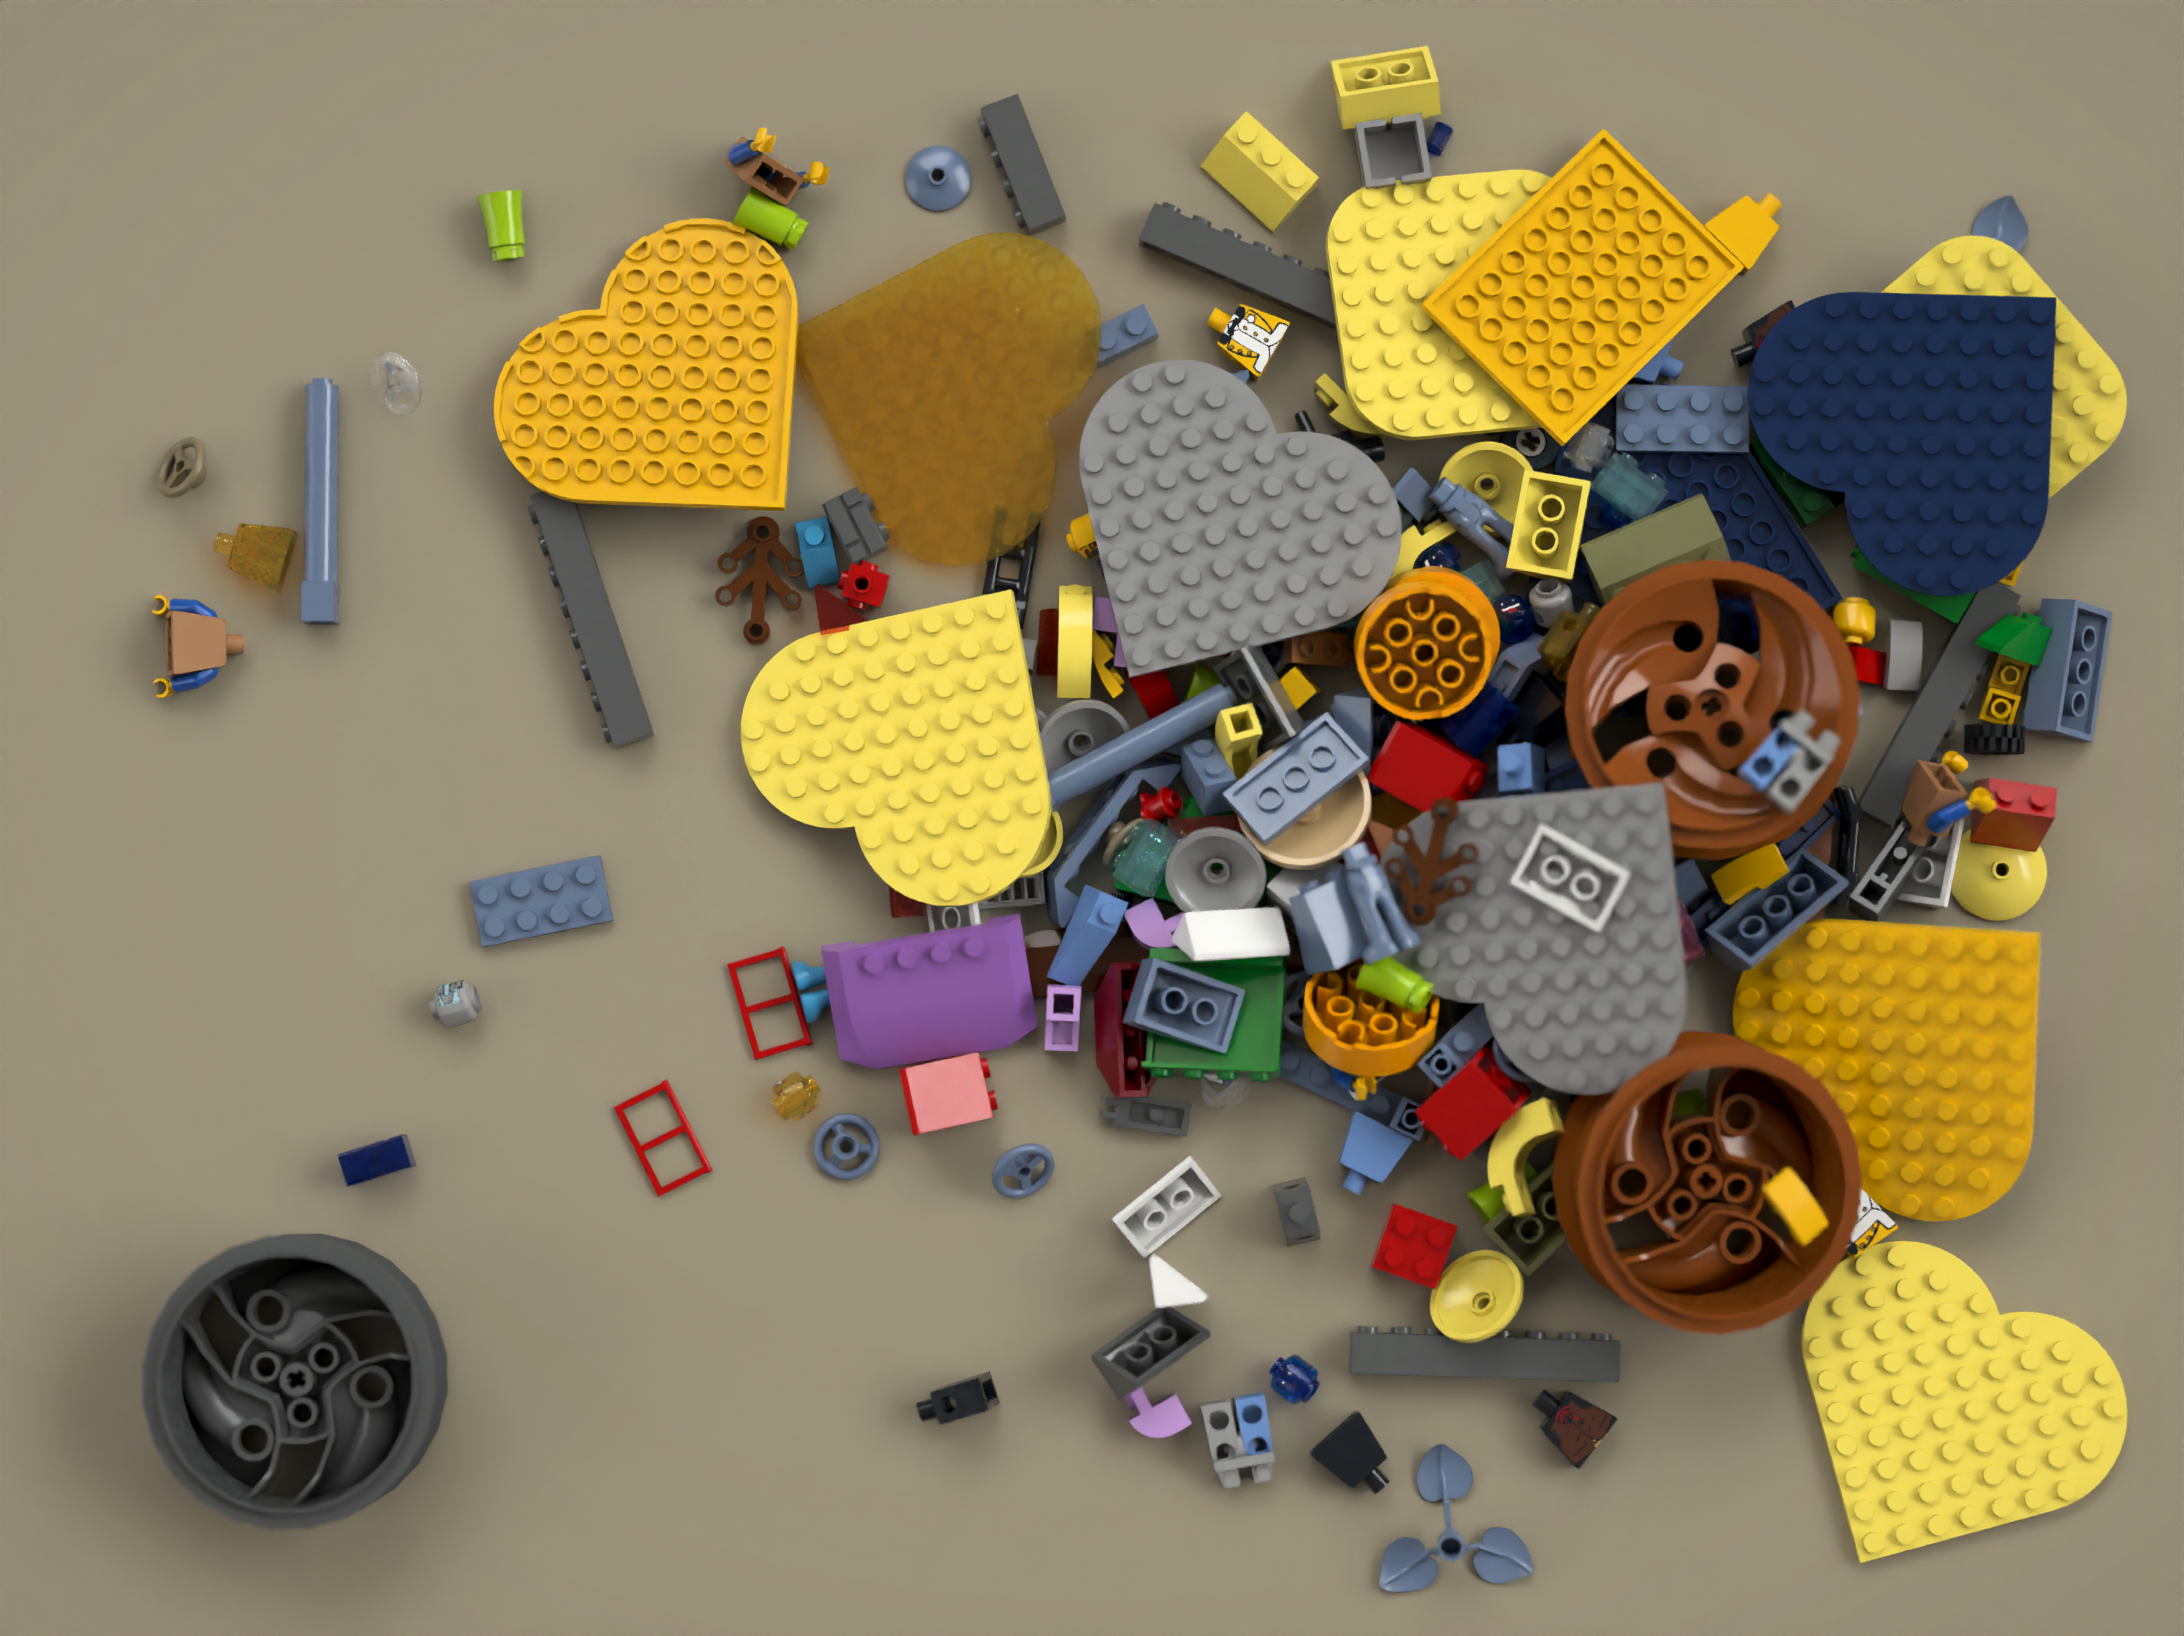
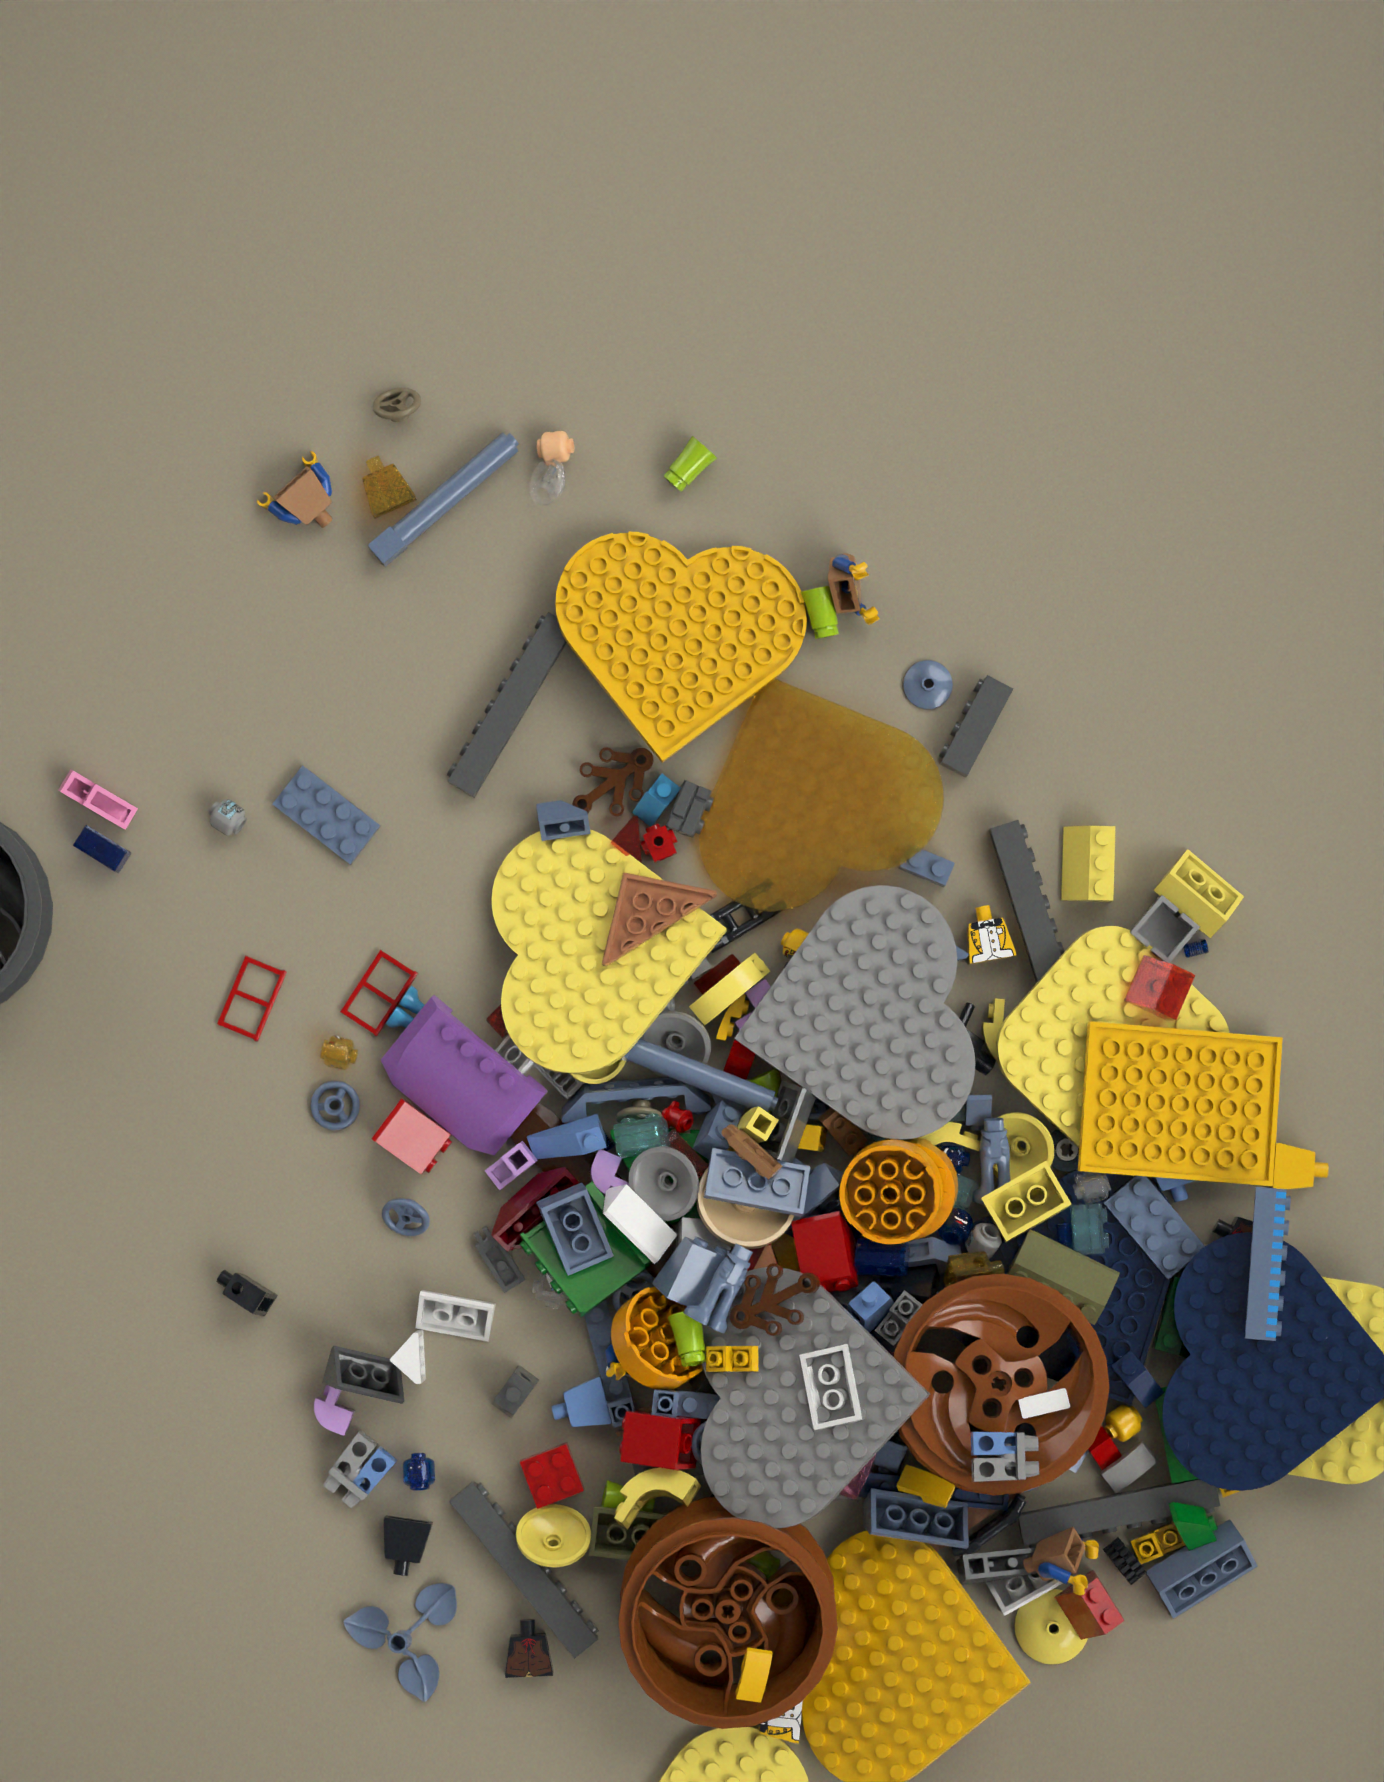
camera: 50 degrees right, 0 degrees up
(321, 1121) = (97, 799): none -> bright pink slope
(366, 343) = (555, 446): none -> light nougat head
(755, 665) = (561, 820): none -> sand blue slope
(922, 652) = (647, 908): none -> nougat tile
(1257, 757) = (751, 1151): none -> medium nougat hinge
(1448, 205) = (1159, 988): none -> clear red slope
(1454, 956) = (731, 1358): none -> yellow slope
(1557, 754) = (898, 1317): none -> light grey slope
(1770, 676) = (1044, 1403): none -> white sticker
(1819, 336) = (1265, 1264): none -> sand blue brick
(1823, 568) = (1137, 1379): none -> dark blue slope

